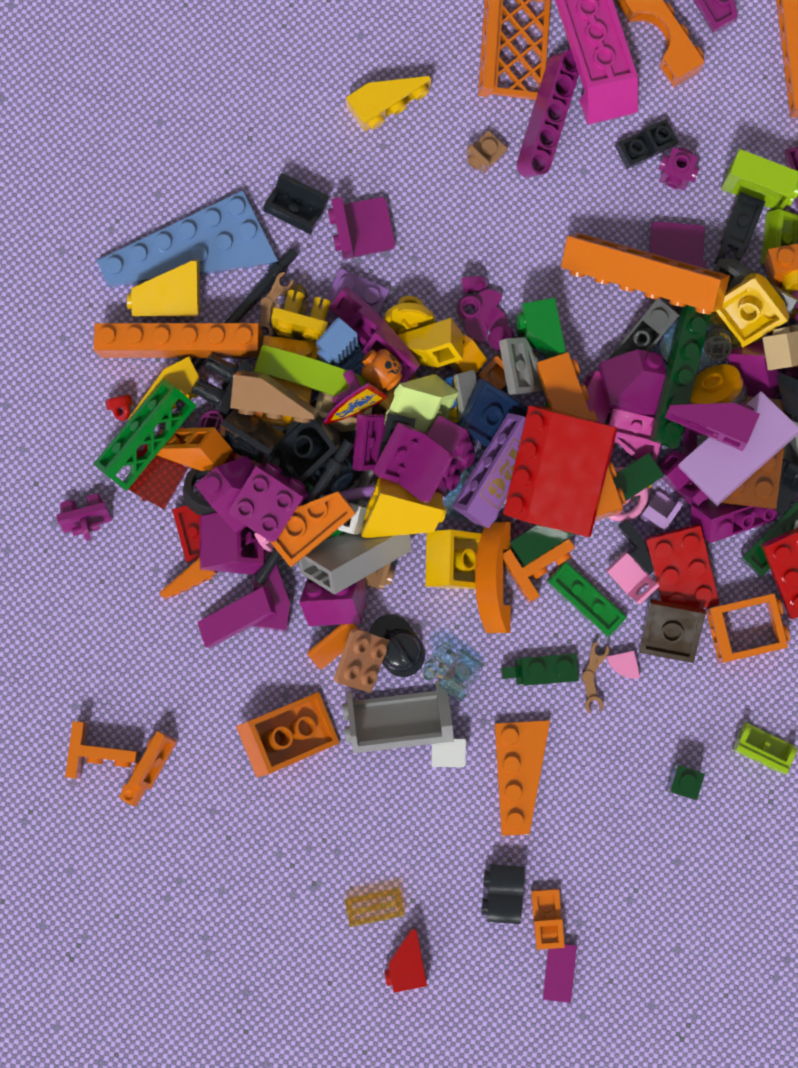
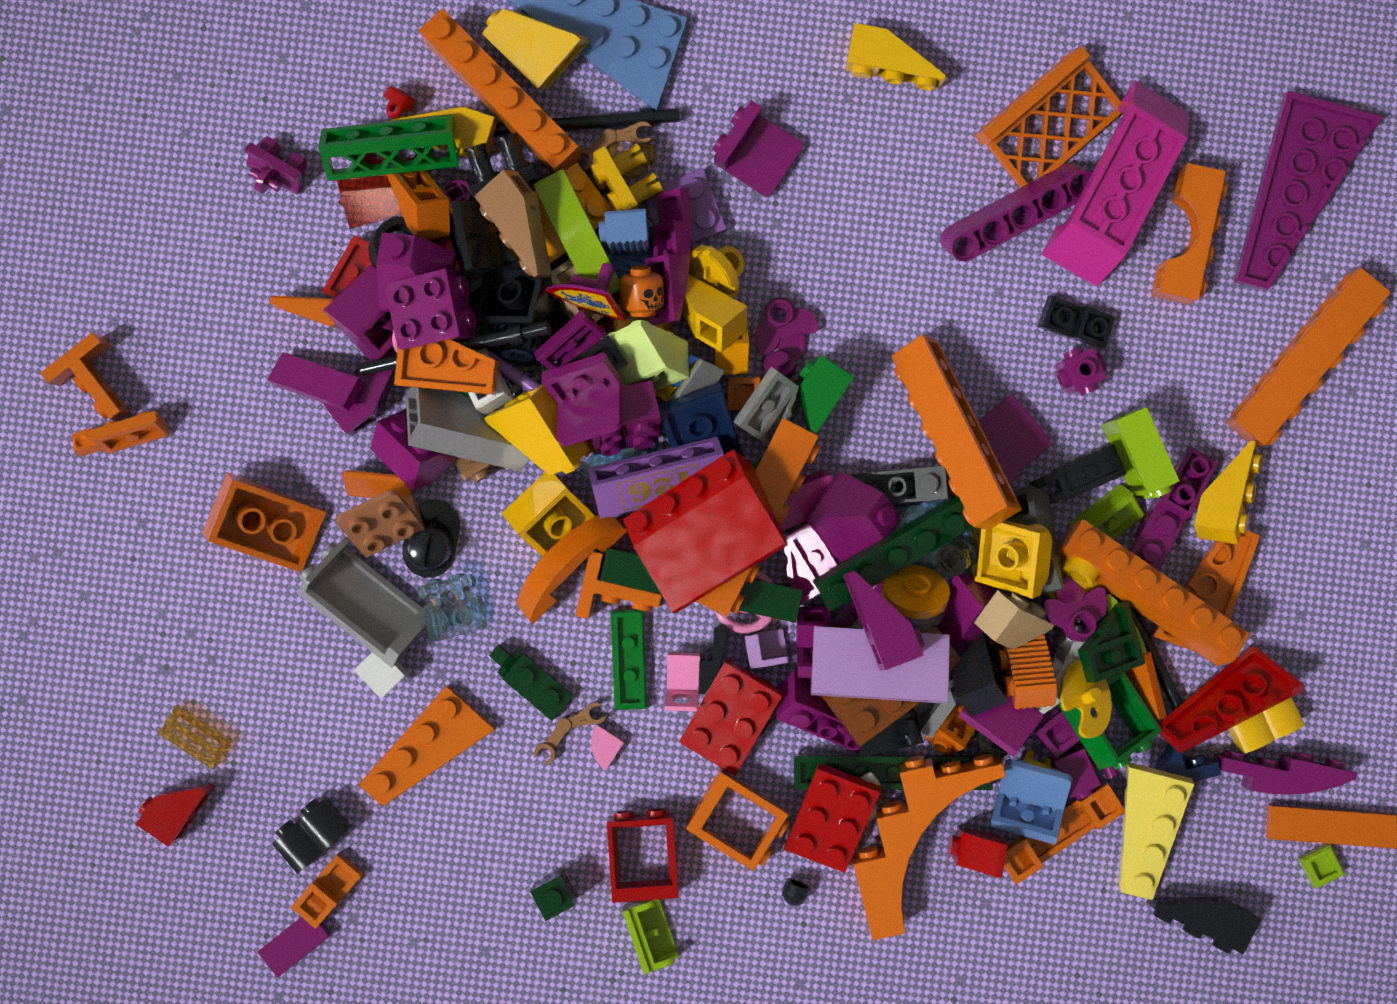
camera: 50 degrees right, 5 degrees up
(296, 203) = (720, 75): black bracket -> none
(474, 284) = (804, 296): magenta tile -> none
(485, 152) = (929, 191): medium nougat bracket -> none
(672, 631) = (671, 758): dark brown plate -> none
(737, 723) = (649, 888): none -> red window

